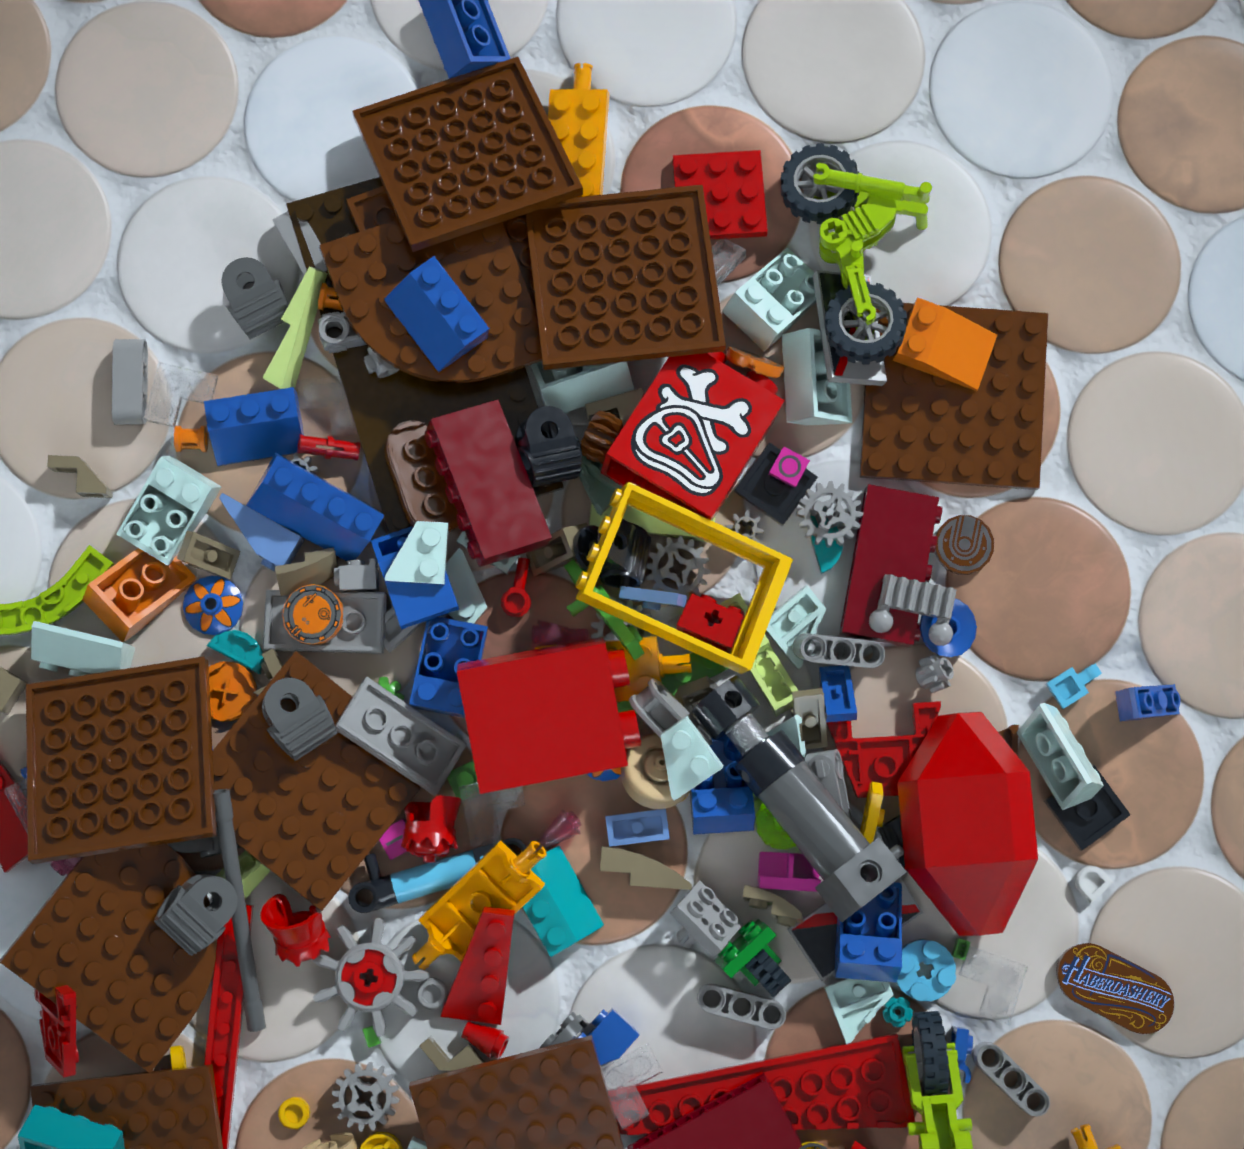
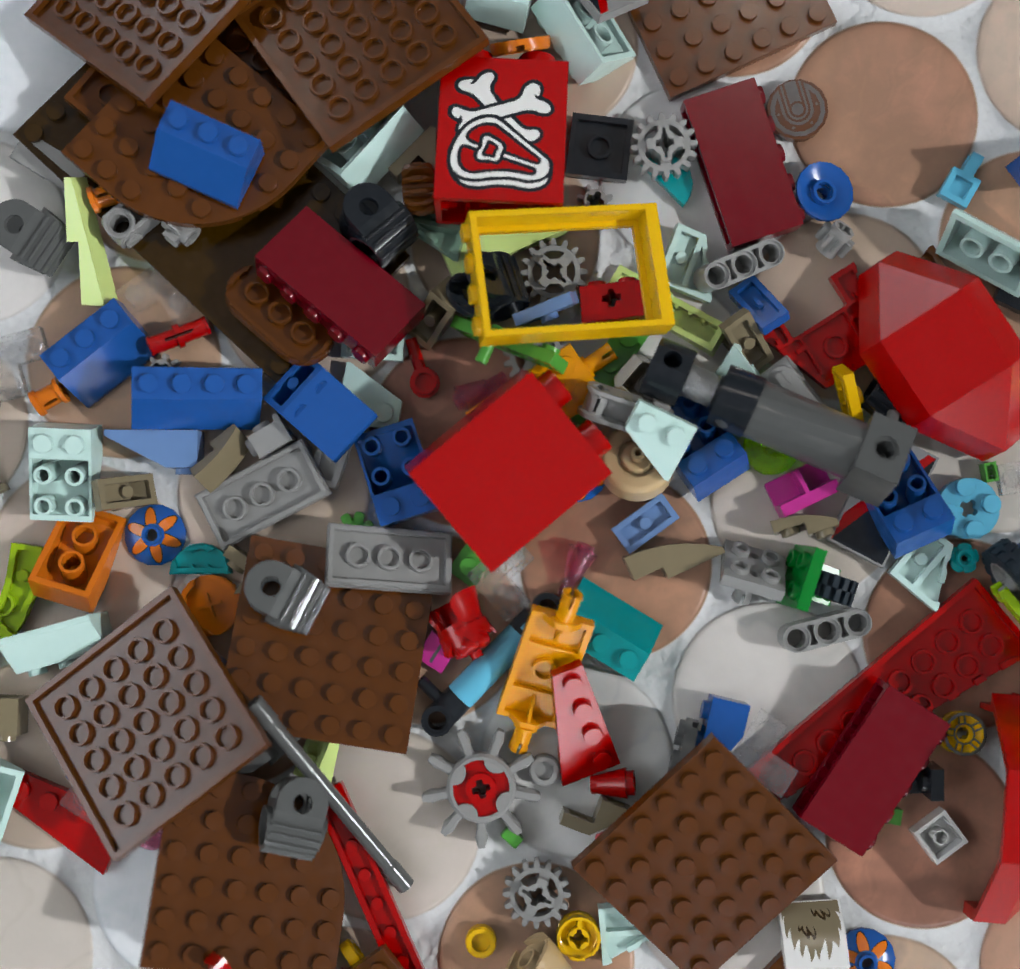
camera: 20 degrees left, 5 degrees up
(296, 935) = (395, 786): red hat -> none
(313, 614) = (249, 494): tile -> none
(422, 555) = (316, 385): light aqua wing -> none
(789, 467) = (604, 124): dark pink tile -> none
(915, 598) = (785, 179): light grey gear -> none

